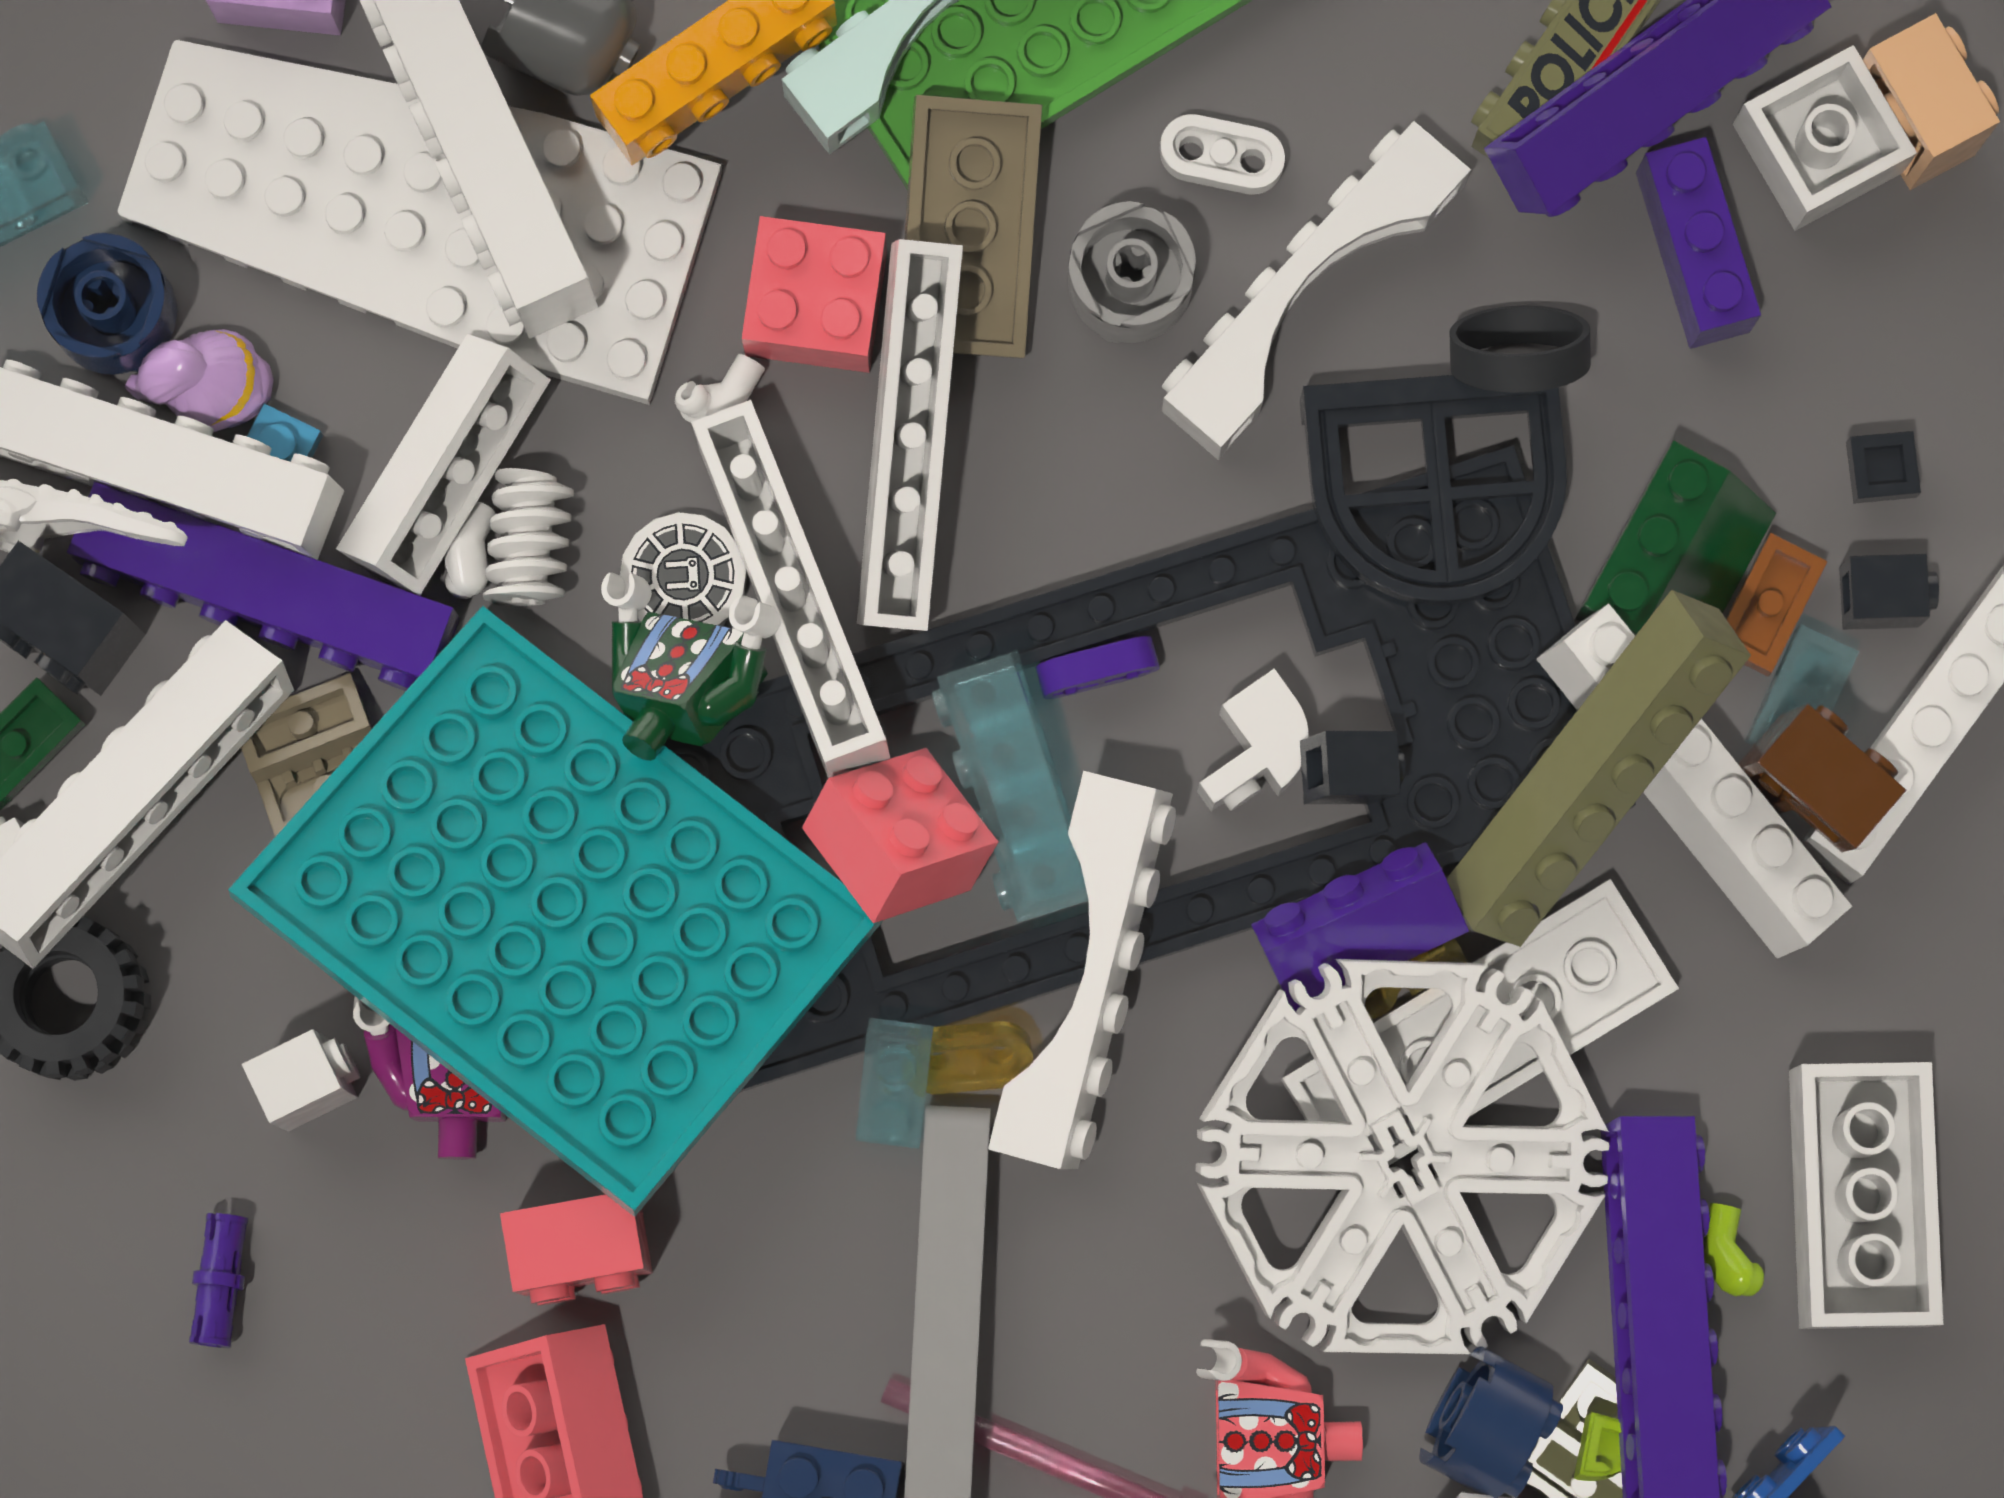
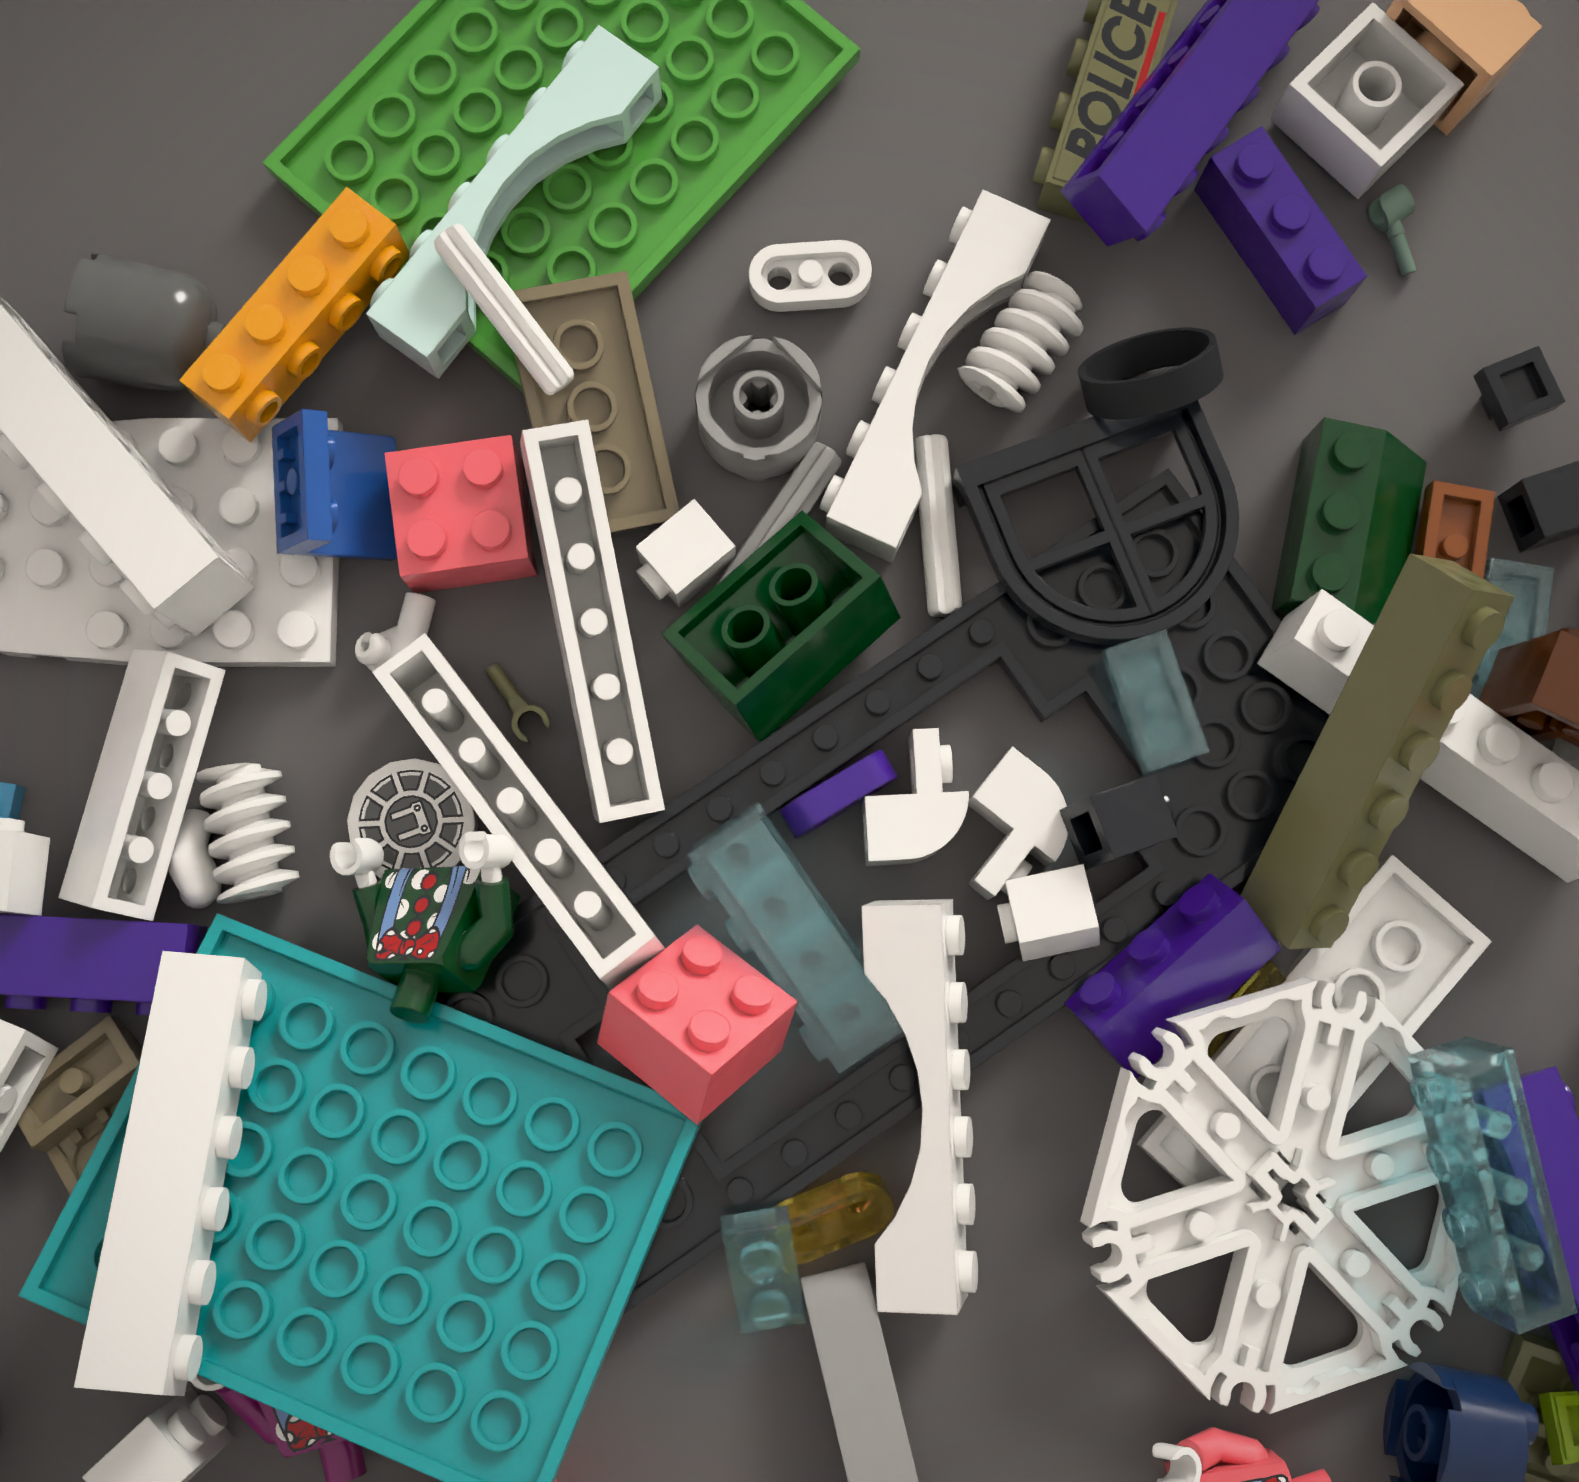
camera: 20 degrees left, 0 degrees up
(396, 821) = (172, 1177): none -> white brick
(700, 237) = (331, 490): none -> blue bracket
(813, 488) = (515, 701): none -> olive hand
(913, 113) = (503, 309): none -> white axle
(1017, 395) = (684, 555): none -> white brick
(1091, 489) = (783, 625): none -> dark green slope
(1118, 390) = (797, 494): none -> light grey axle
(1165, 718) = (919, 823): none -> white brick
(1260, 834) = (1050, 913): none -> white brick
(1273, 436) = (938, 526): none -> white axle
(1408, 281) = (1021, 341): none -> white piece
(1423, 666) = (1154, 702): none -> clear light blue plate
(1589, 1196) = (1491, 1183): none -> clear light blue brick
(1818, 253) = (1386, 215): none -> sand green hand

